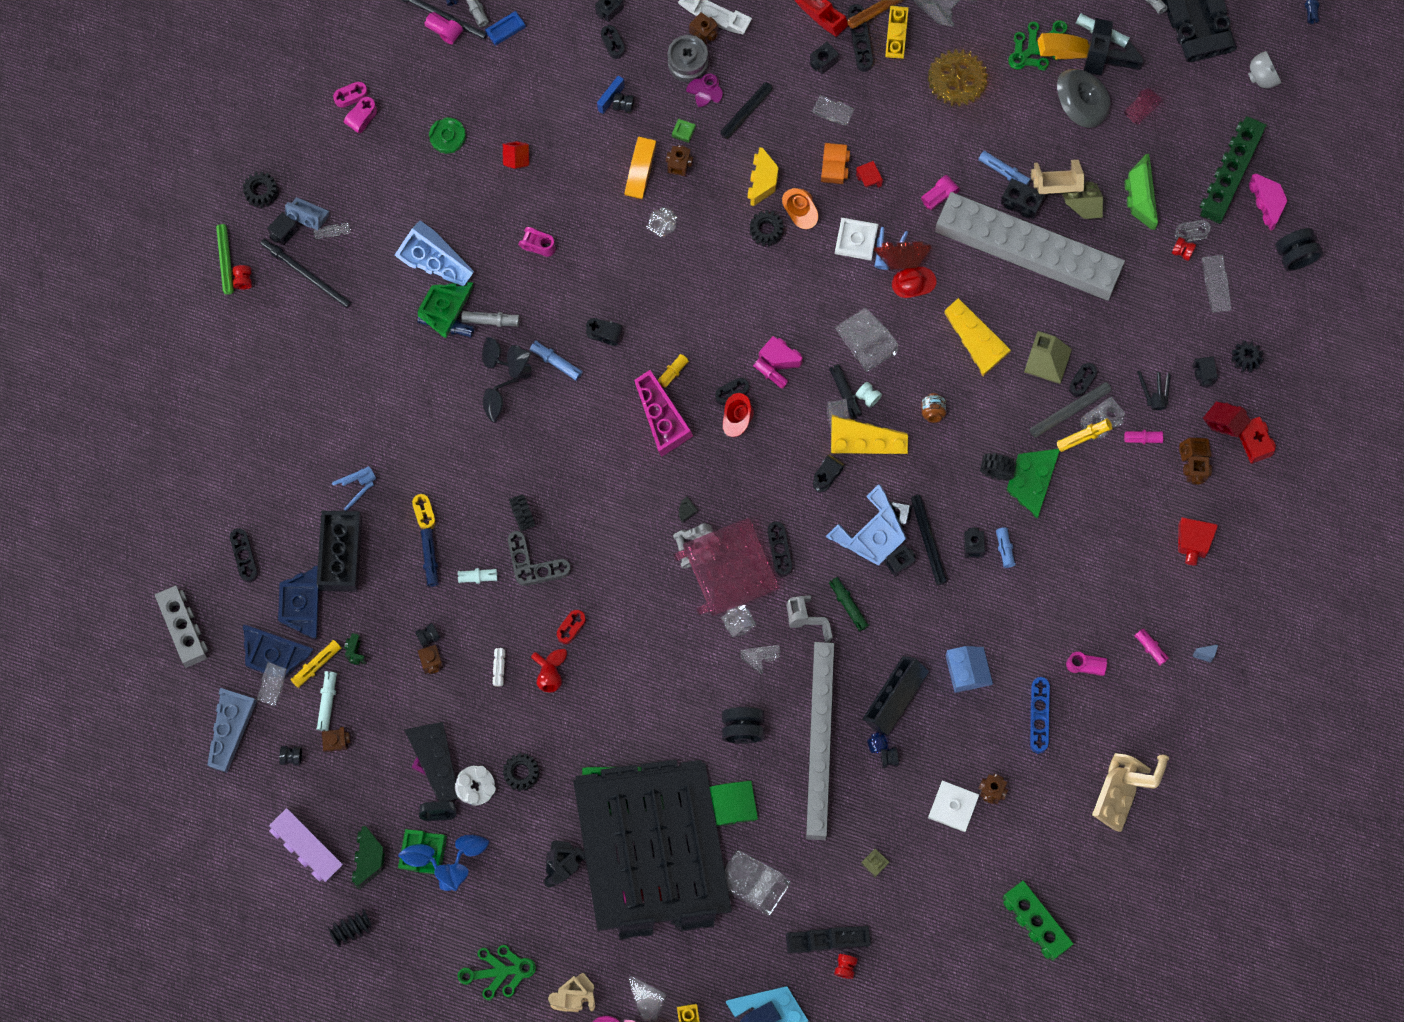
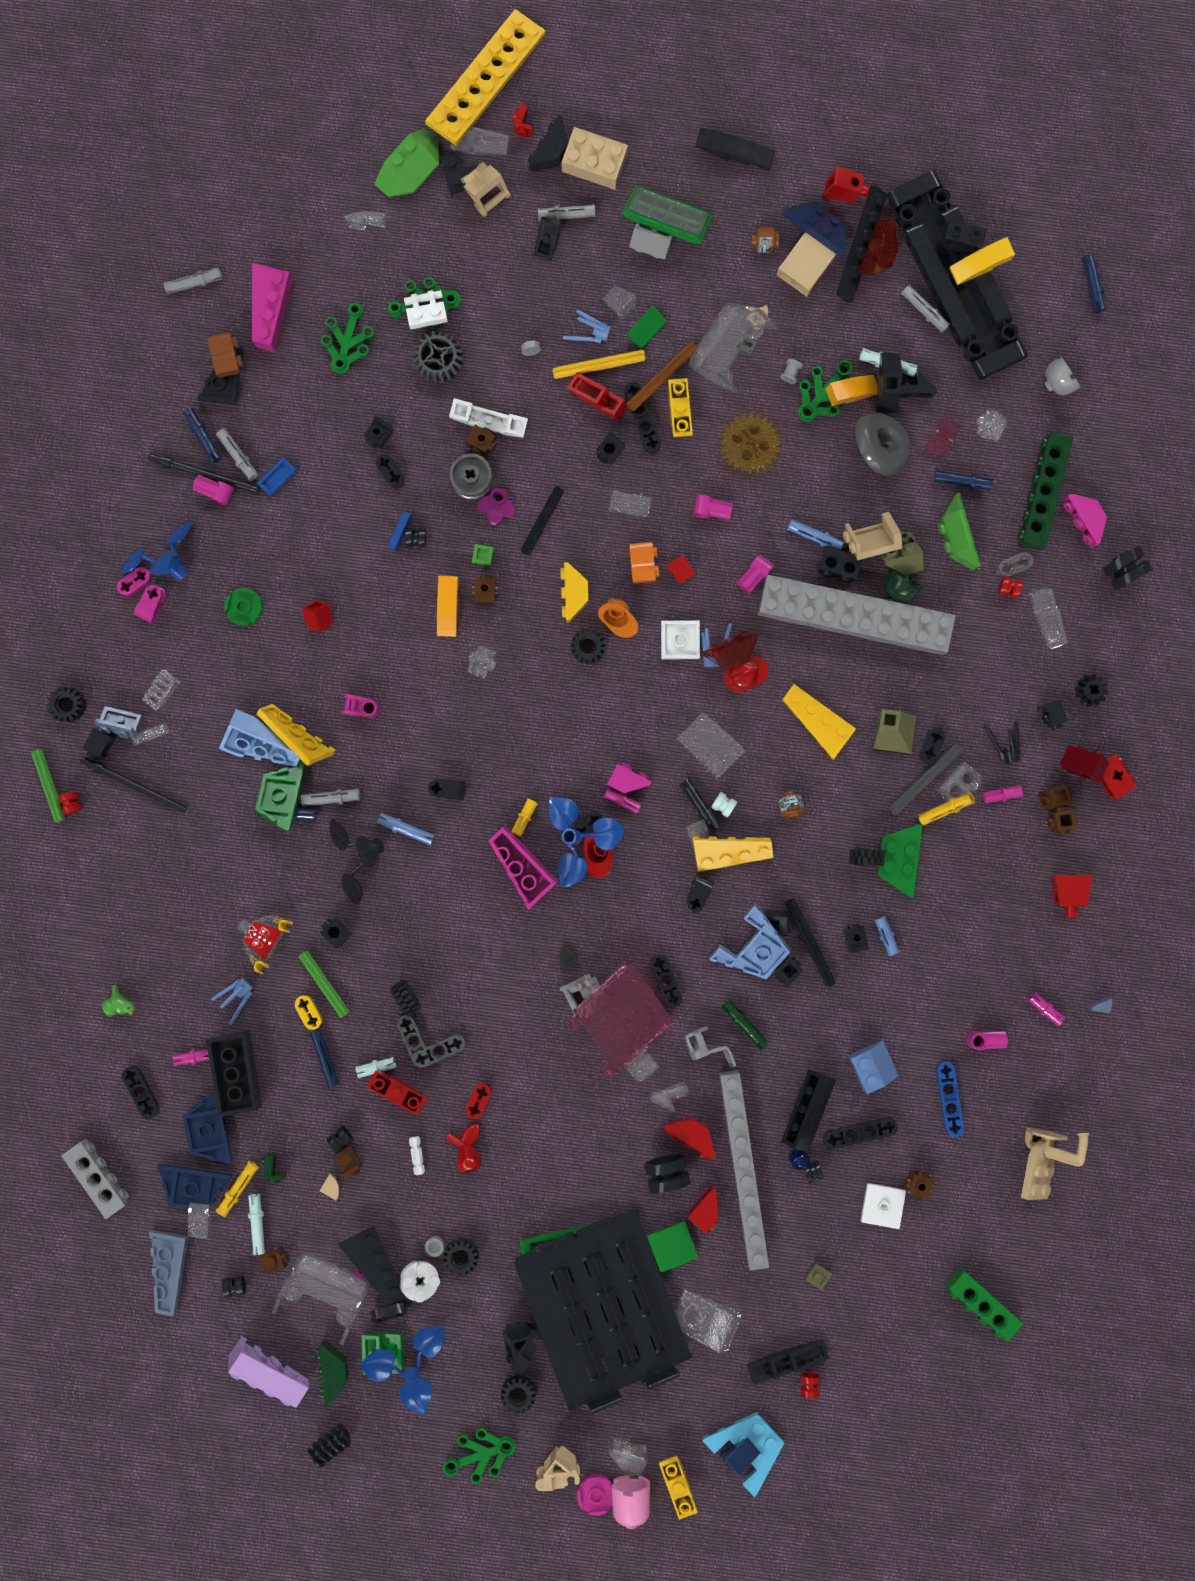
camera: 15 degrees left, 15 degrees up
(242, 468) = (117, 1004): none -> bright green animal
(301, 531) = (191, 1057): none -> dark pink pin
(358, 179) = (165, 694): none -> clear slope
(380, 772) = (327, 1284): none -> clear windscreen
(391, 86) = (166, 563): none -> blue plant
(397, 432) = (262, 938): none -> torso
(407, 681) = (331, 1187): none -> tan tile
(444, 488) = (323, 984): none -> bright green axle
(467, 449) = (344, 933): none -> black brick
(469, 255) = (305, 746): none -> yellow wing
(493, 598) = (397, 1091): none -> red slope
(496, 758) = (434, 1246): none -> light grey tile
(549, 930) = (509, 1402): none -> black tyre
(710, 378) = (607, 836): none -> blue plant
(773, 774) = (705, 1211): none -> red slope
(775, 698) = (692, 1134): none -> red slope
(905, 125) = (708, 507): none -> dark pink piece
(943, 728) = (860, 1134): none -> black beam
(1009, 21) = (791, 371): none -> light grey bush
(1077, 228) = (900, 587): none -> clear green cylinder
(1156, 146) = (971, 481): none -> dark blue pin
(1190, 100) = (991, 424): none -> clear brick

